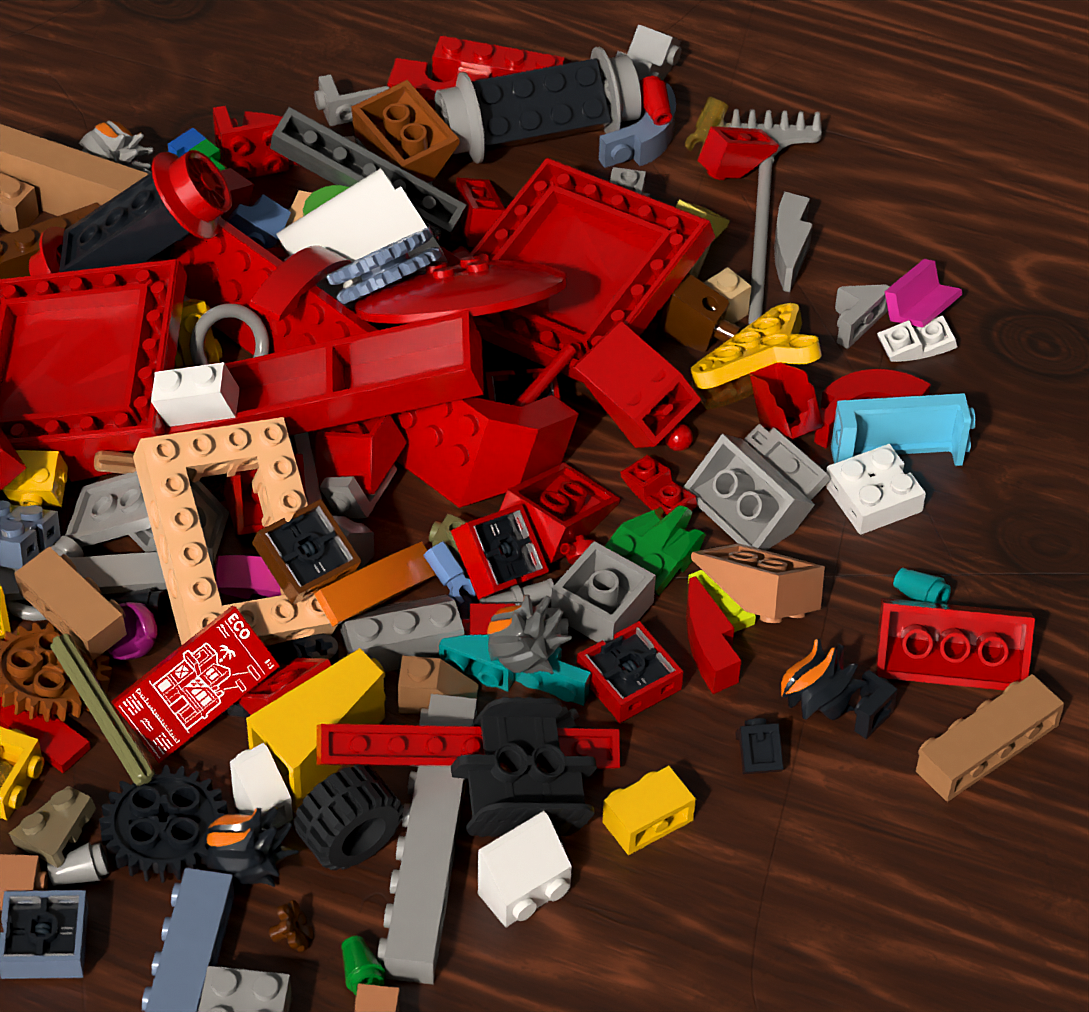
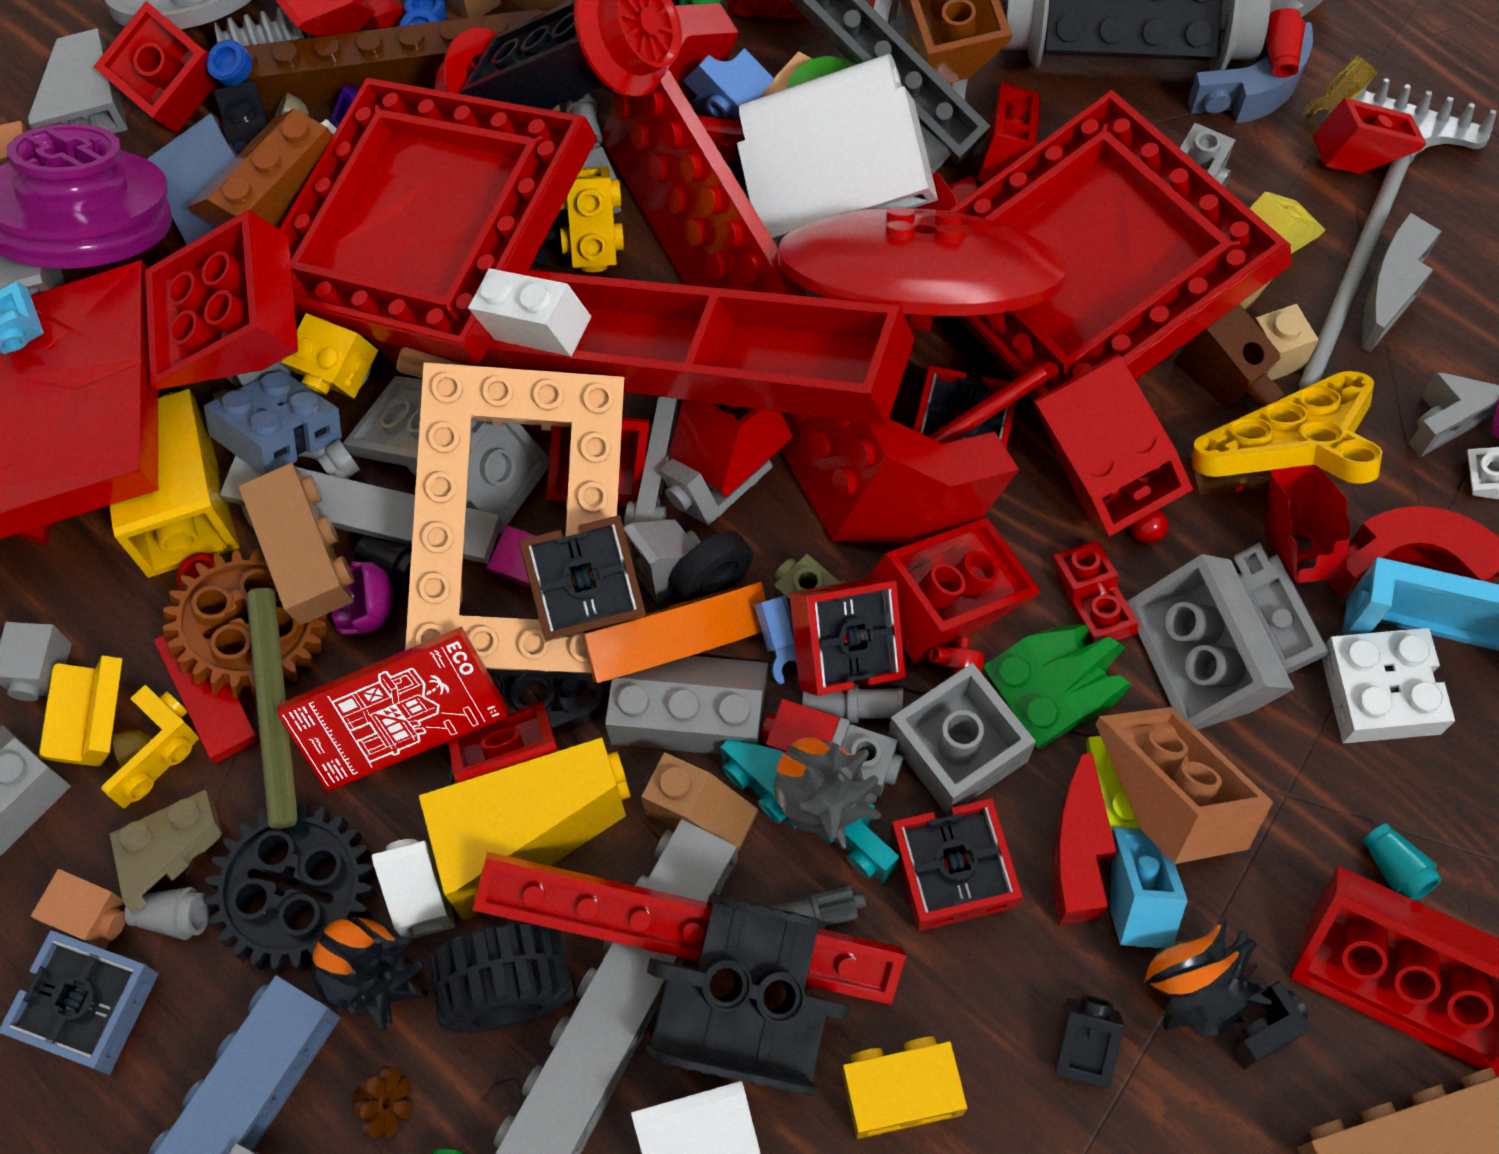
camera: 25 degrees right, 15 degrees up
(225, 311) = (629, 197): light grey piece -> none
(294, 277) = (725, 176): red slope -> none
(383, 536) = (711, 566): none -> black tyre
(384, 266) = (838, 195): sand blue piece -> none
(762, 649) = (1144, 892): none -> medium azure slope

